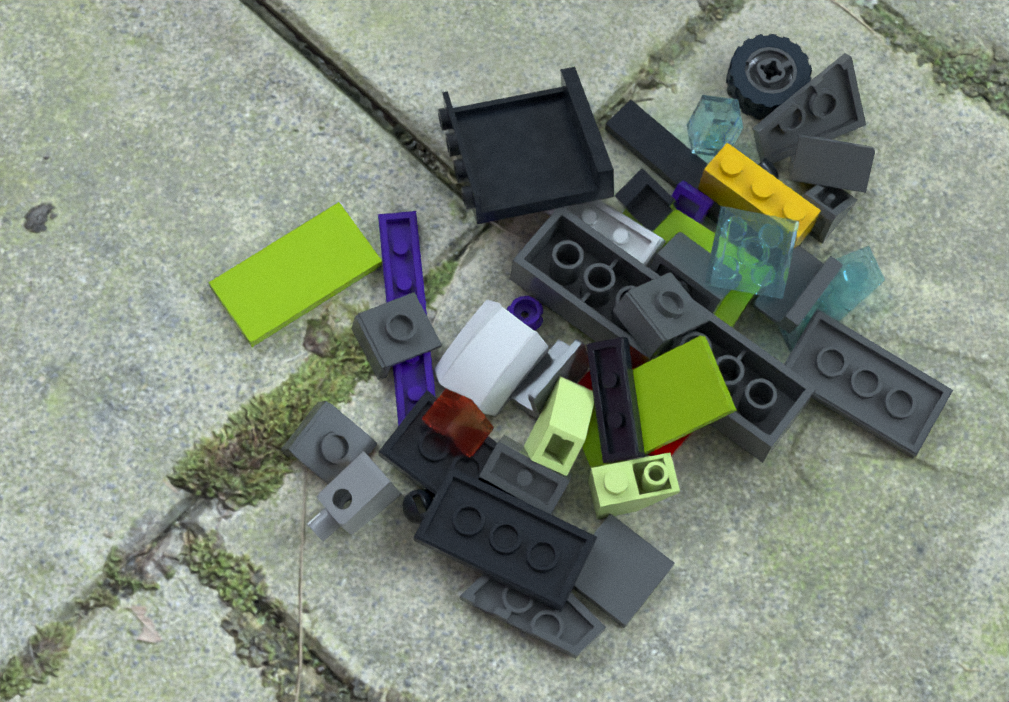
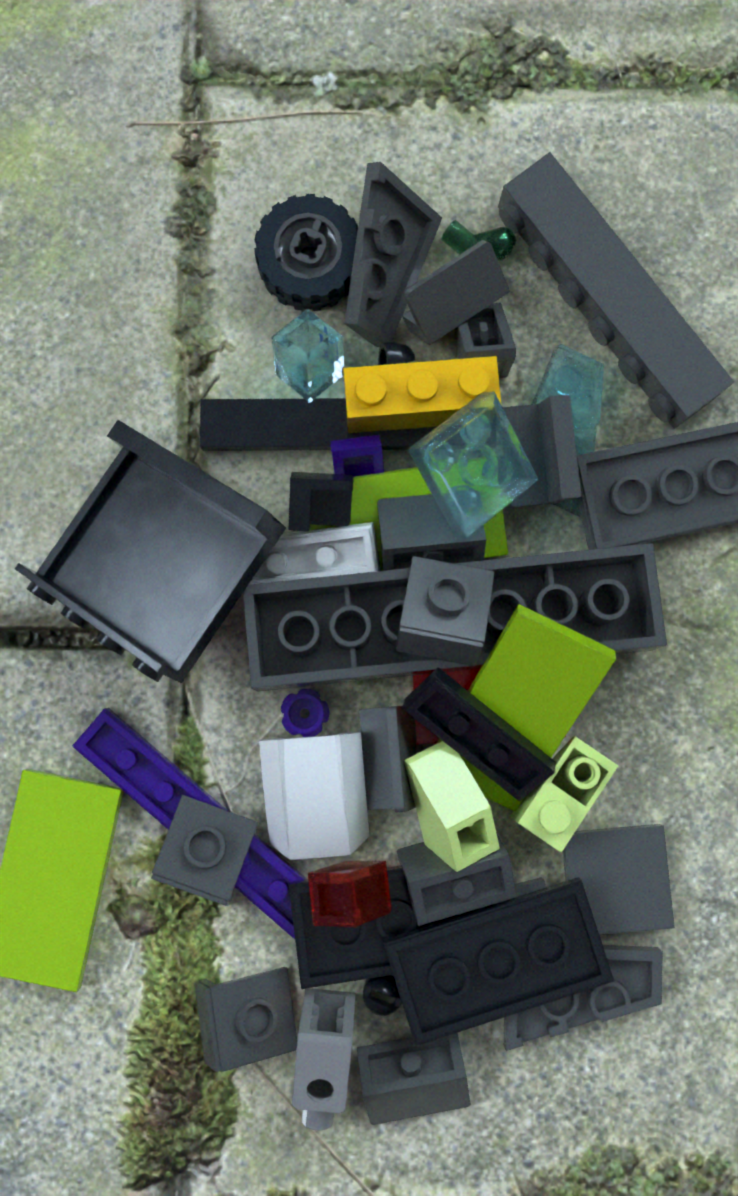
camera: 40 degrees left, 15 degrees up
(389, 567) = (411, 1079): none -> dark grey panel
(883, 164) = (461, 239): none -> clear green arm
(928, 249) = (612, 291): none -> dark grey brick

